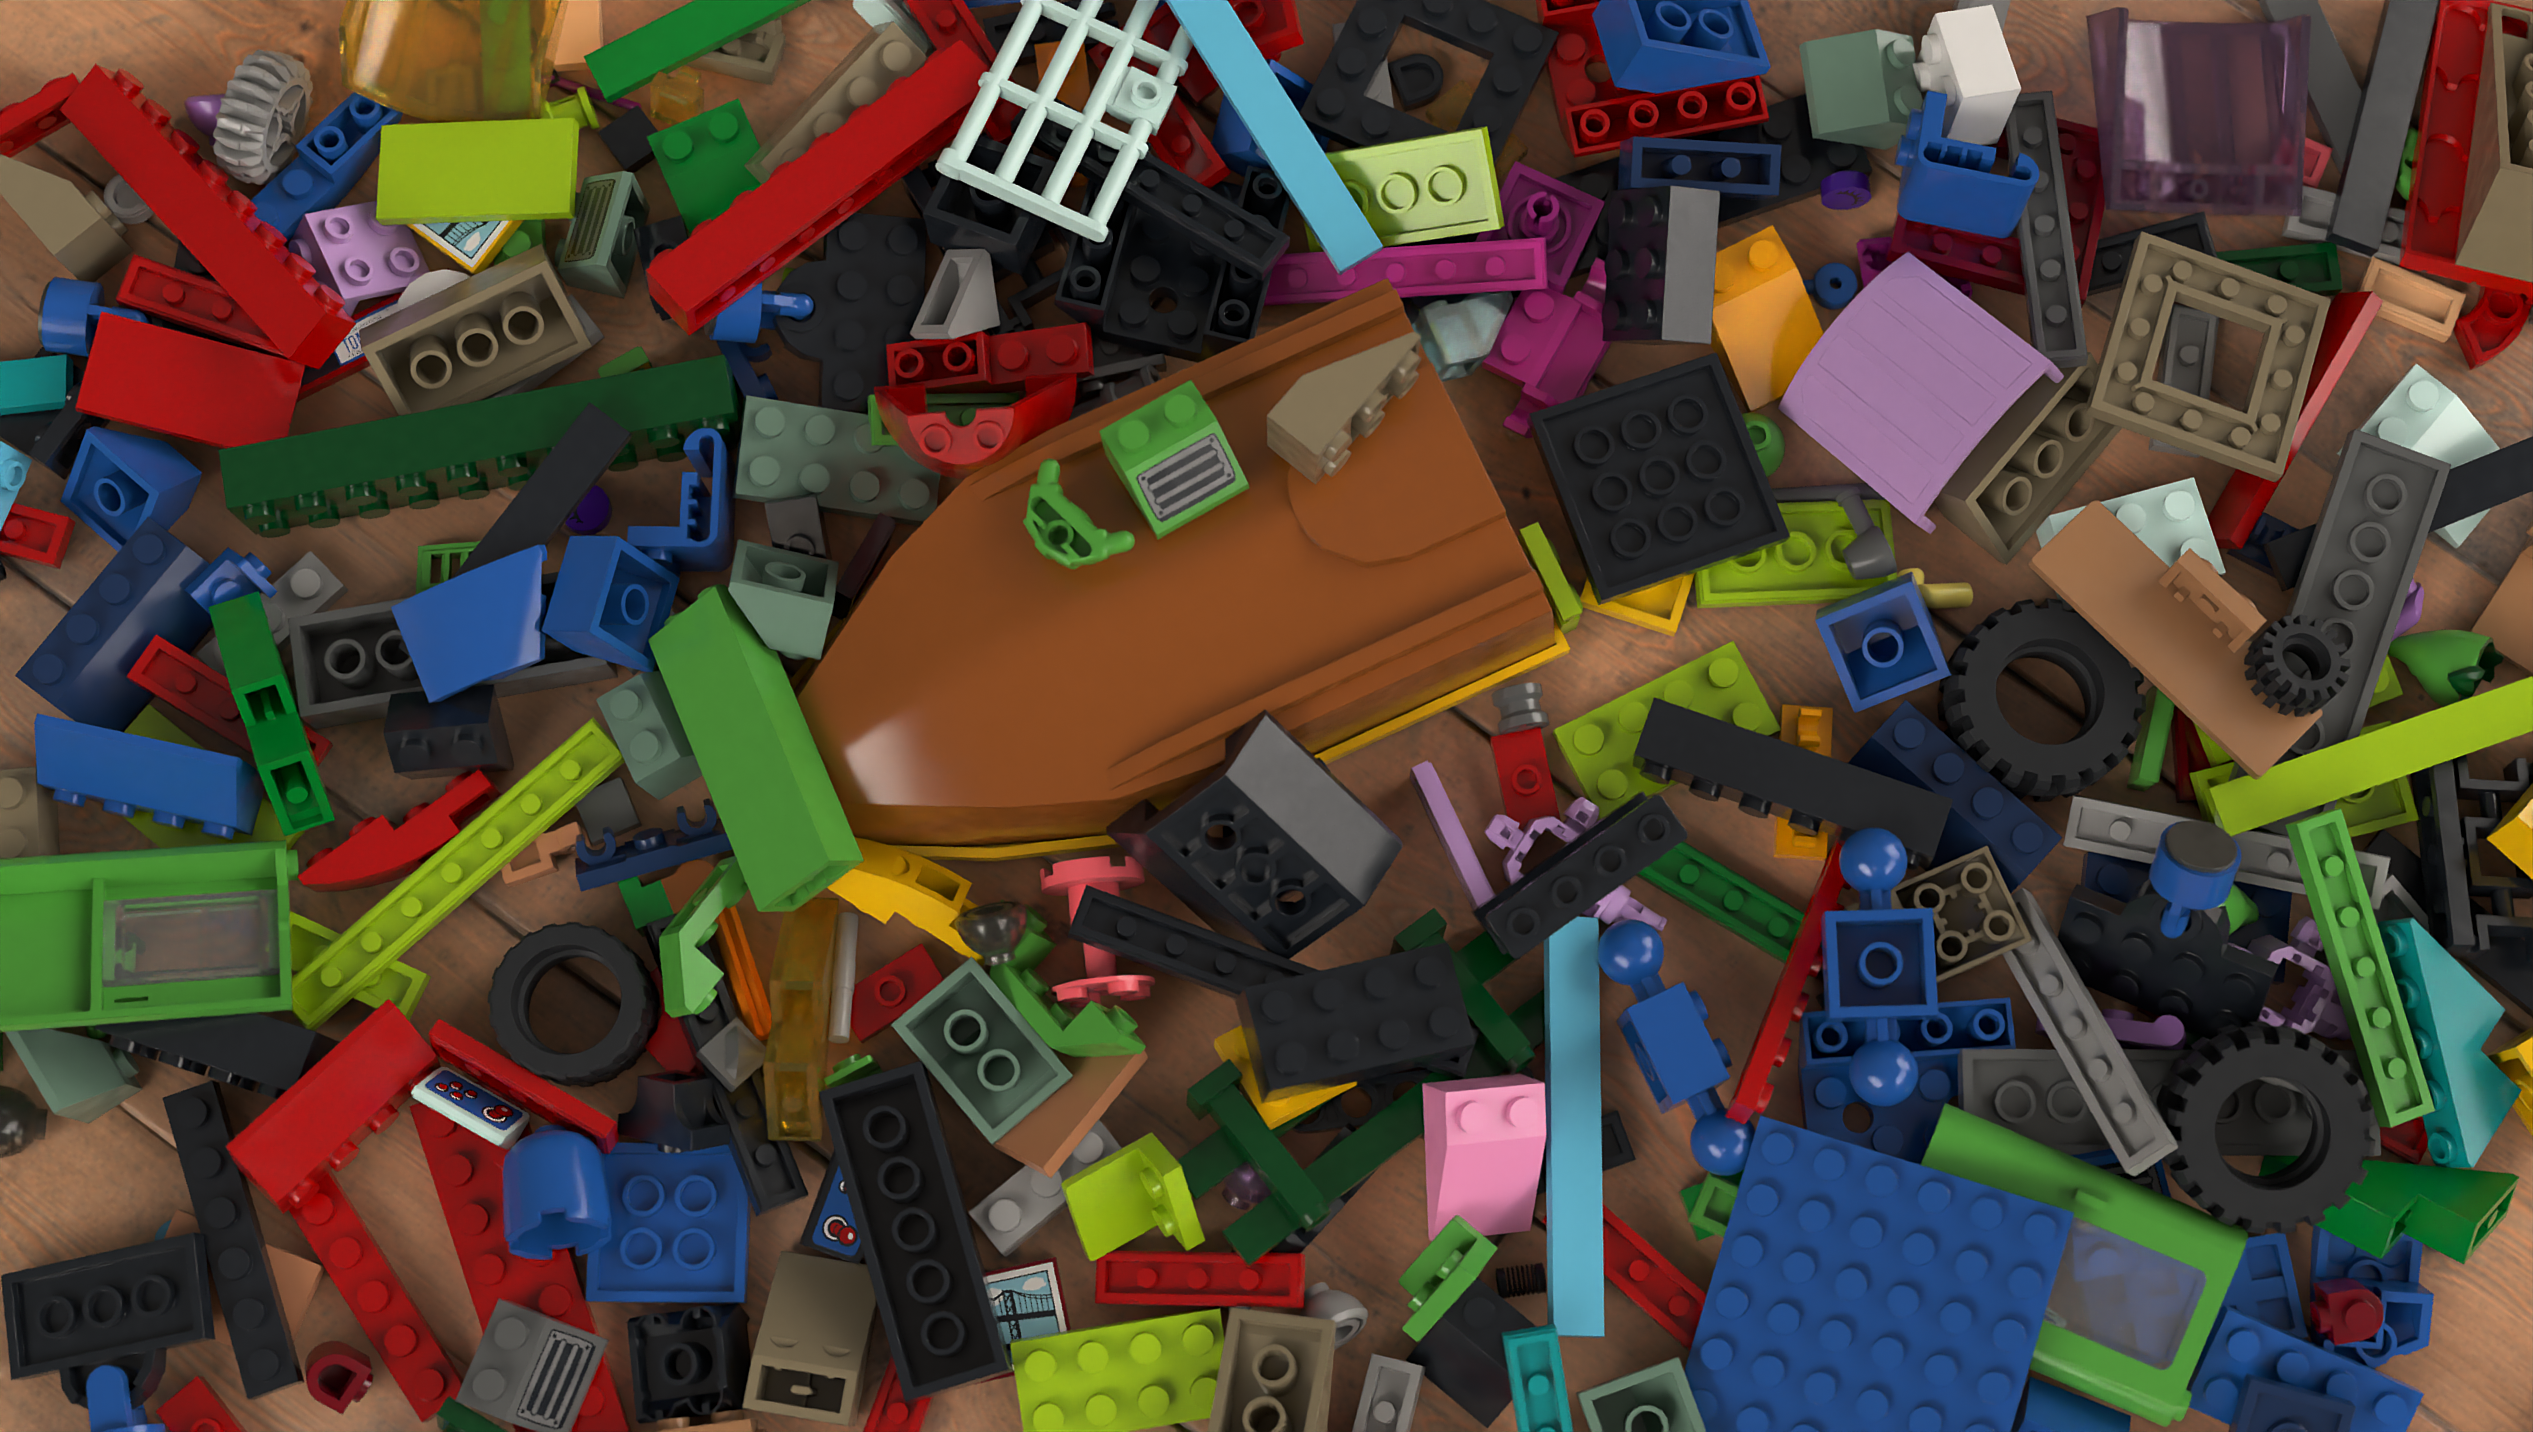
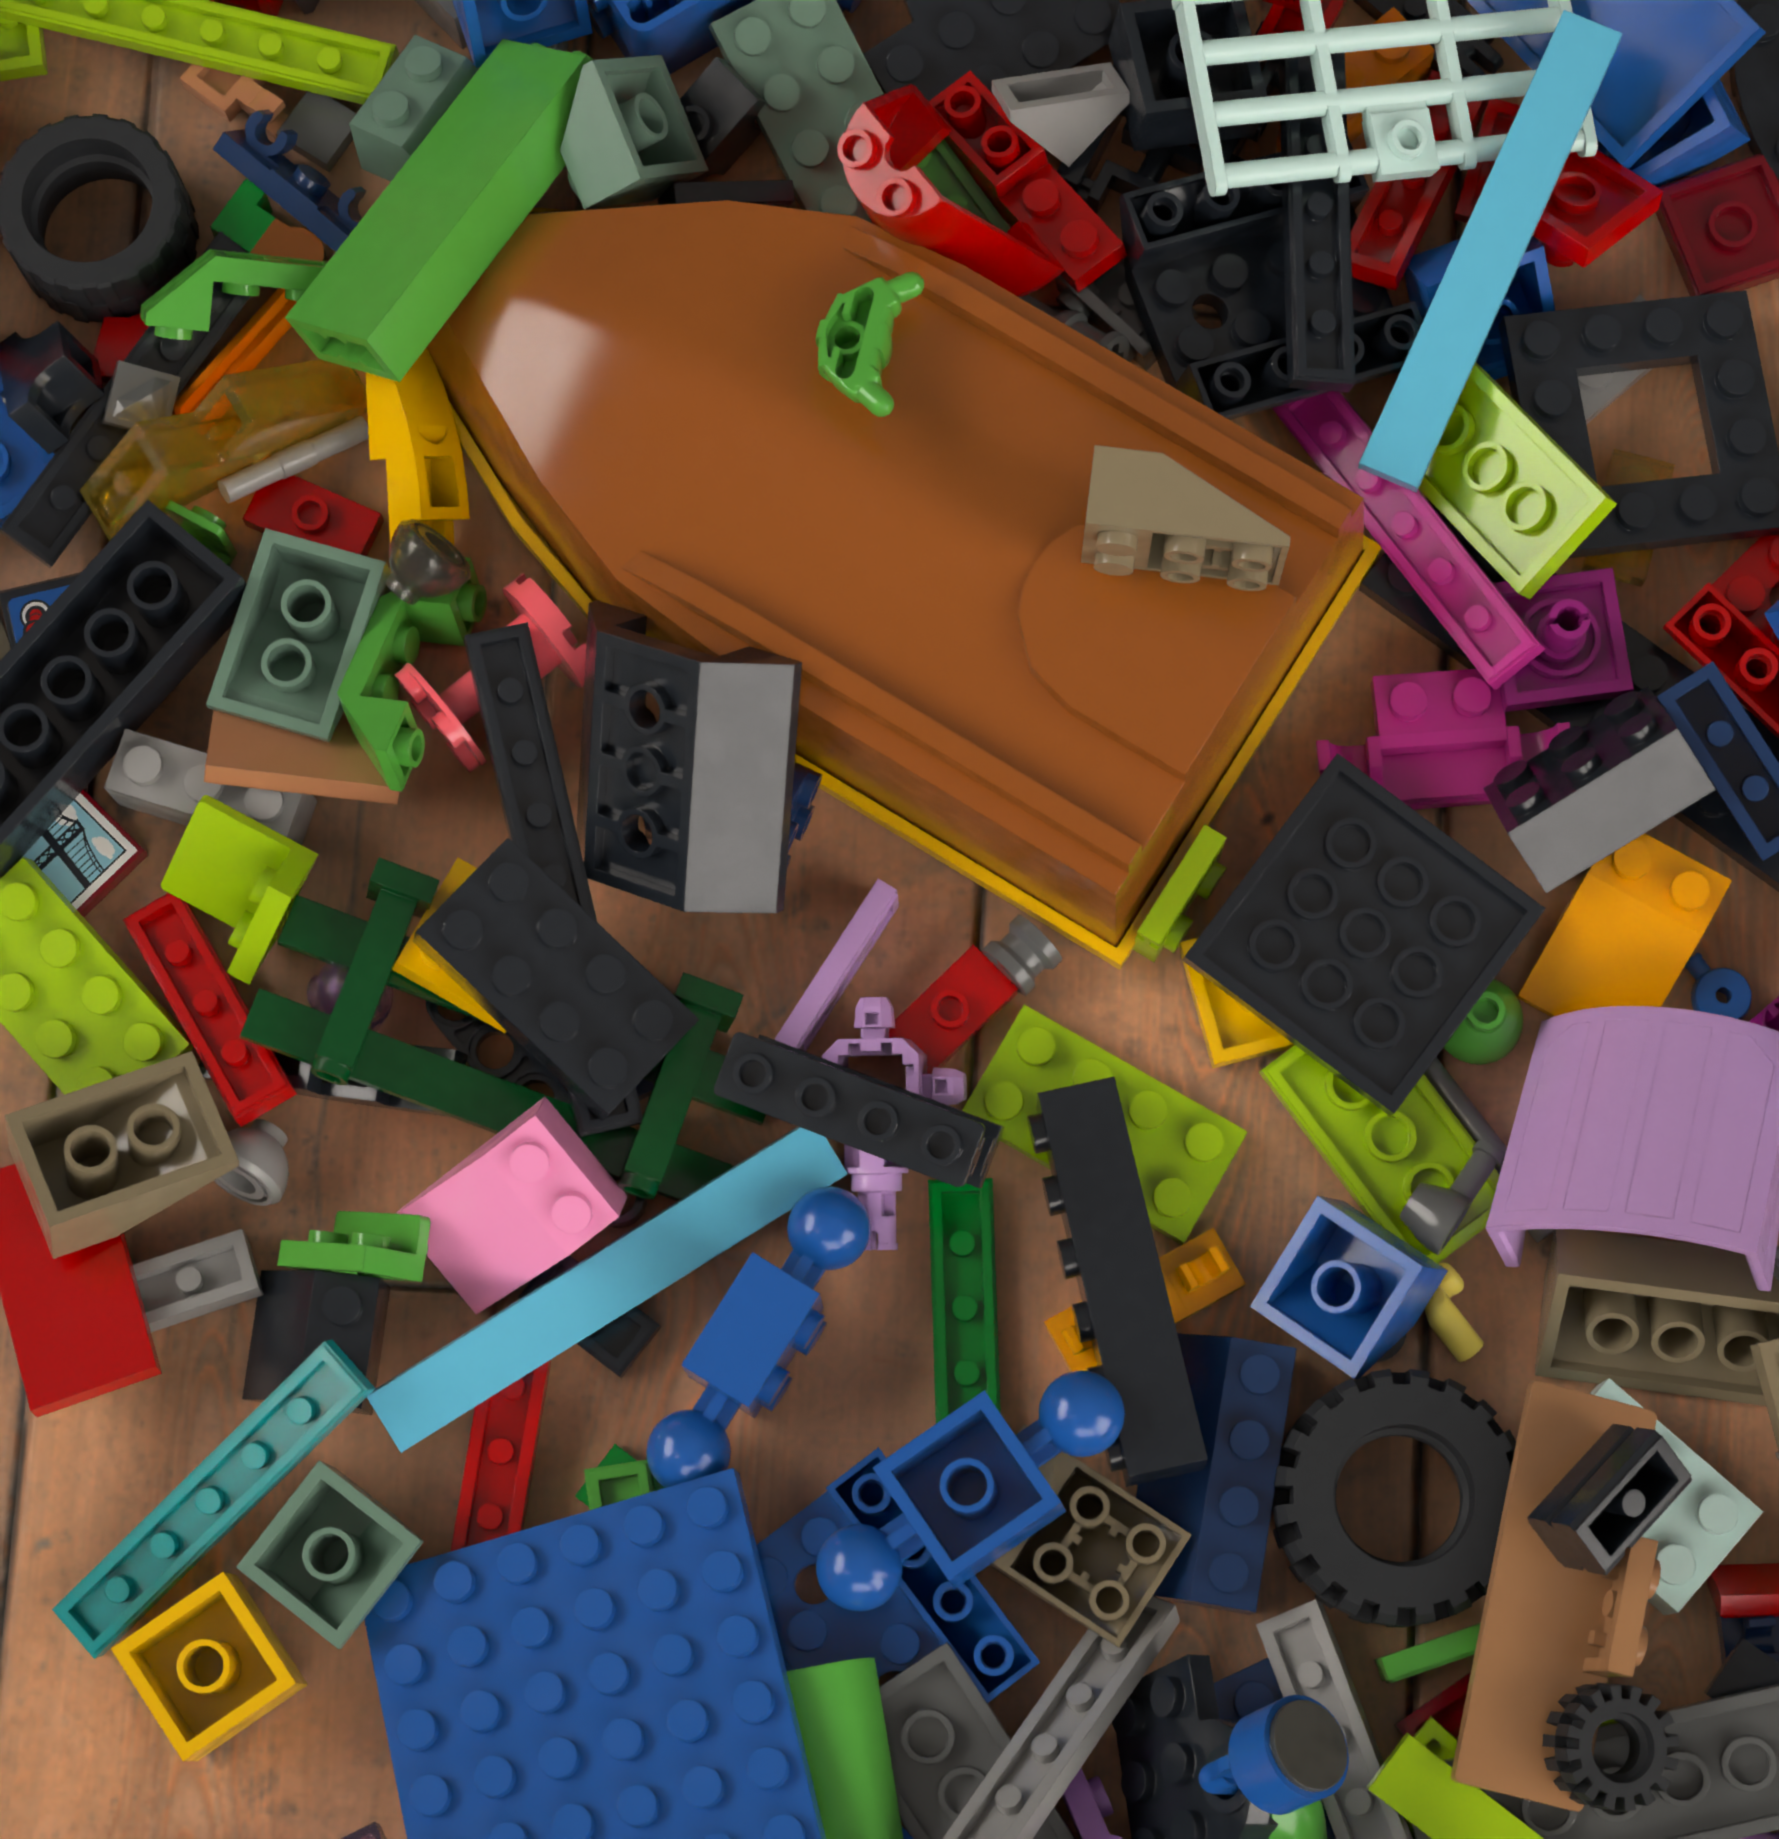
camera: 60 degrees right, 0 degrees up
(1173, 459) = (1004, 399): bright green slope -> none
(1416, 80) = (1641, 421): black tile -> none
(1461, 333) = (1379, 633): clear light blue slope -> none
(1539, 1276) = (400, 1326): black piece -> none
(1788, 998) = (876, 1424): red plate -> none
(2143, 560) = (1609, 1498): none -> black brick

